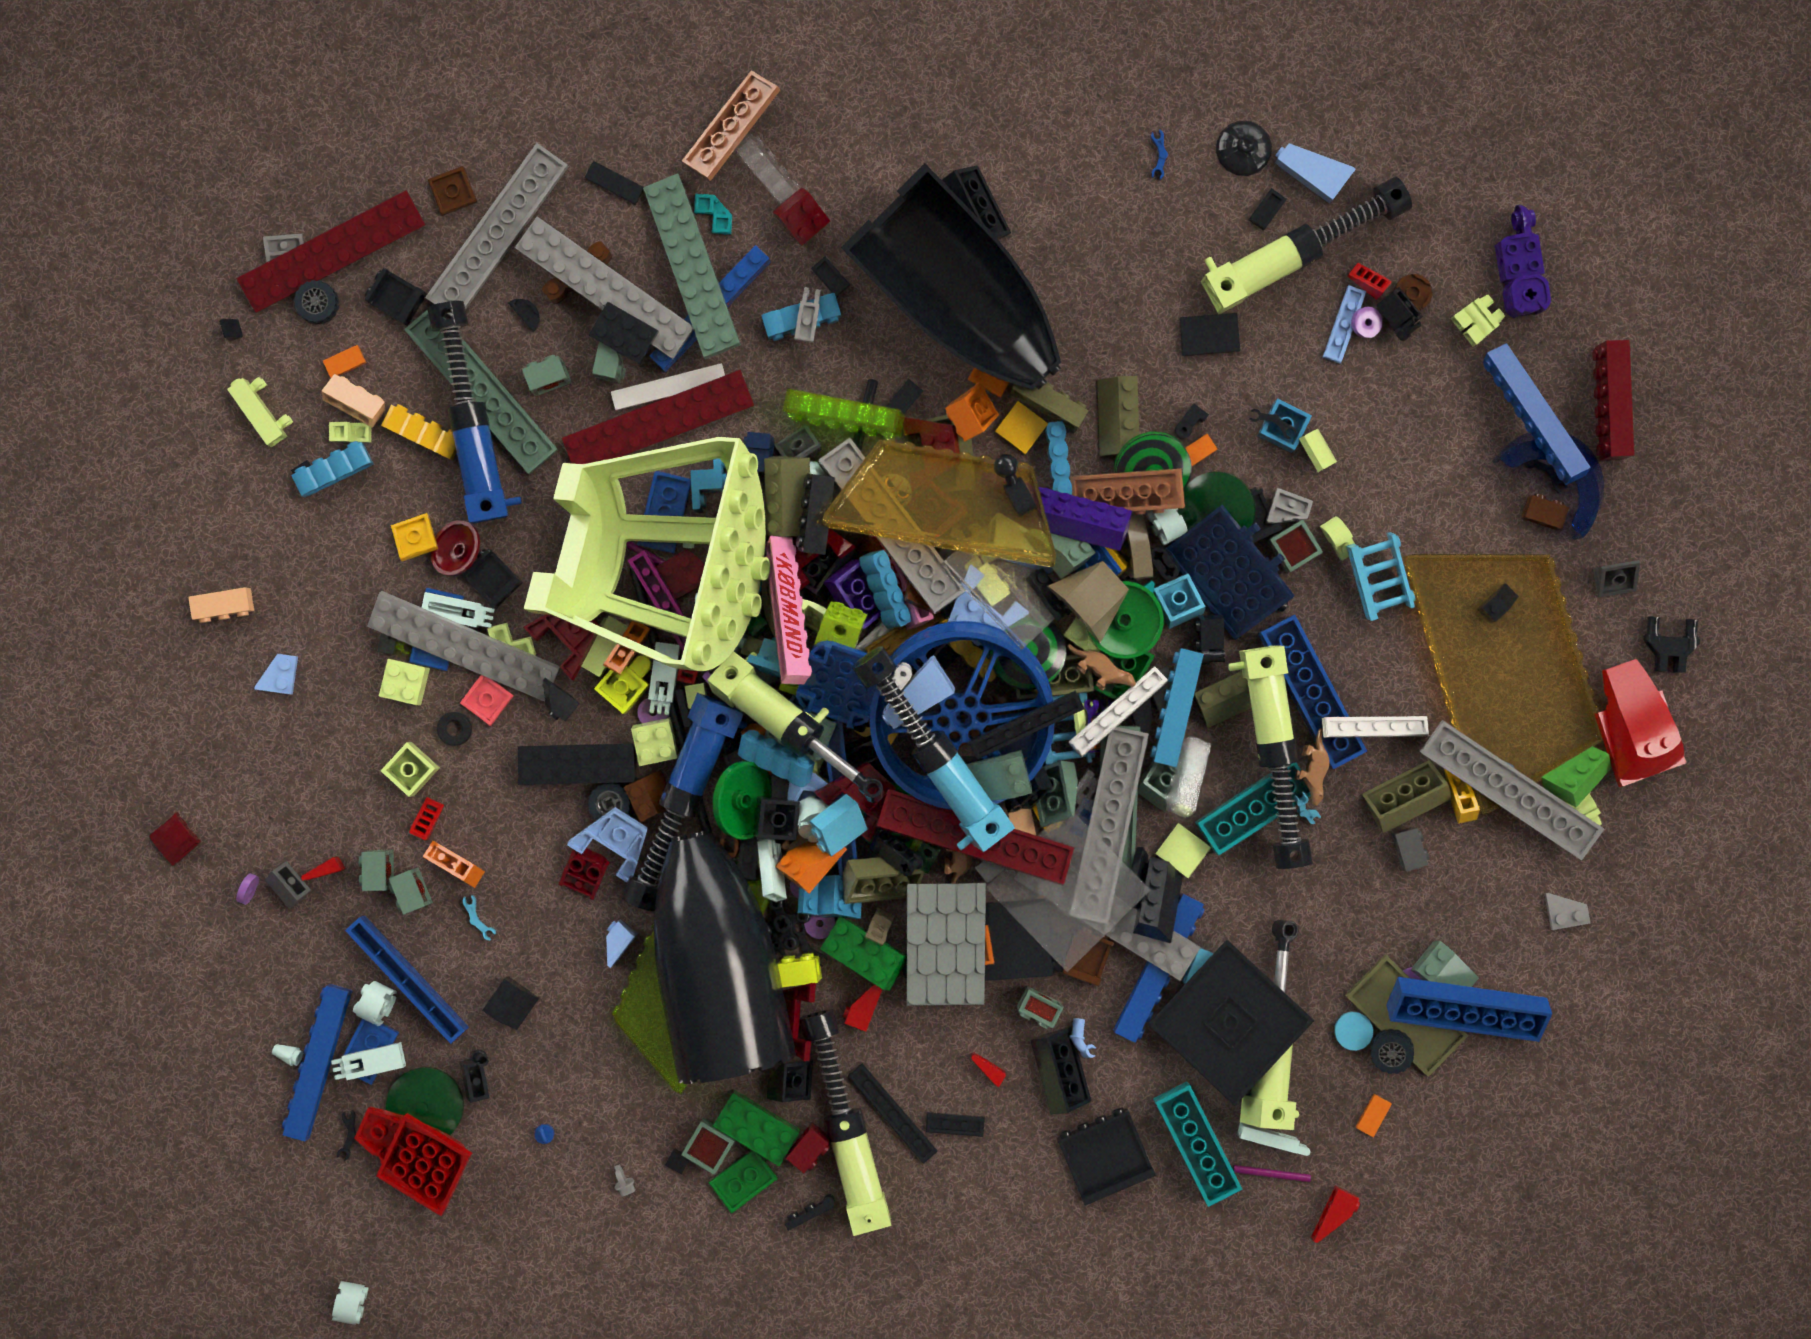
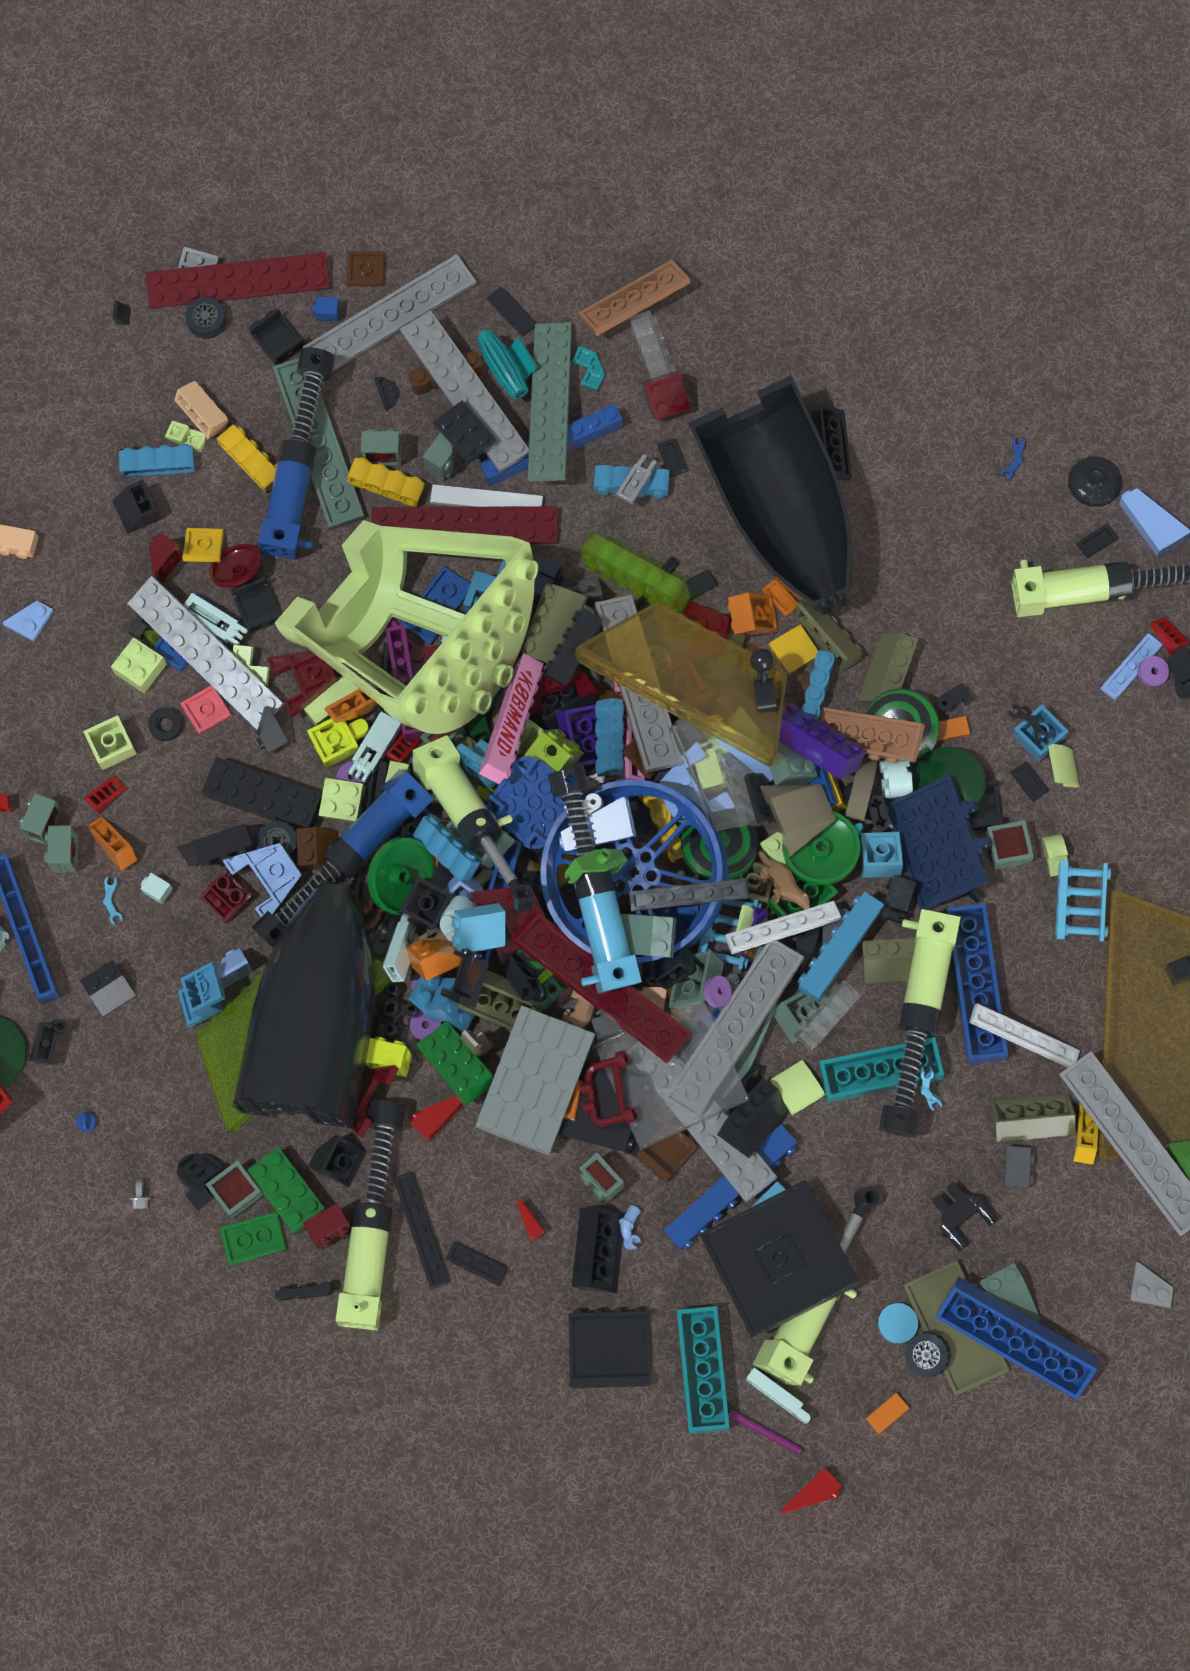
camera: 25 degrees right, 15 degrees down
(257, 412) = (113, 391): yellowish green brick -> none
(332, 524) = (136, 506): none -> black slope
(344, 361) = (208, 375): orange tile -> none
(381, 567) = (163, 556): none -> dark red slope
(431, 249) = (326, 309): none -> blue brick
(514, 891) = (156, 888): none -> light aqua brick
(556, 832) = (216, 846): none -> black wedge
(564, 408) = (385, 482): none -> yellow brick
(602, 980) = (201, 994): none -> dark azure bracket
(635, 243) = (509, 365): none -> teal plate
(668, 1141) = (198, 1170): none -> black tile
(849, 881) = (468, 979): none -> black panel
(931, 735) = (596, 861): none -> bright green piece
(996, 930) = (588, 1088): none -> dark red bar
(1082, 798) = (717, 991): none -> medium lavender piece
(1209, 334) = (1001, 630): black tile -> none
(1288, 507) = (1016, 808): light grey wing -> none
(1289, 475) = (1029, 782): none -> black tile
(1315, 769) = (951, 1051): medium nougat animal -> none
(1372, 910) = (959, 1212): none -> black connector

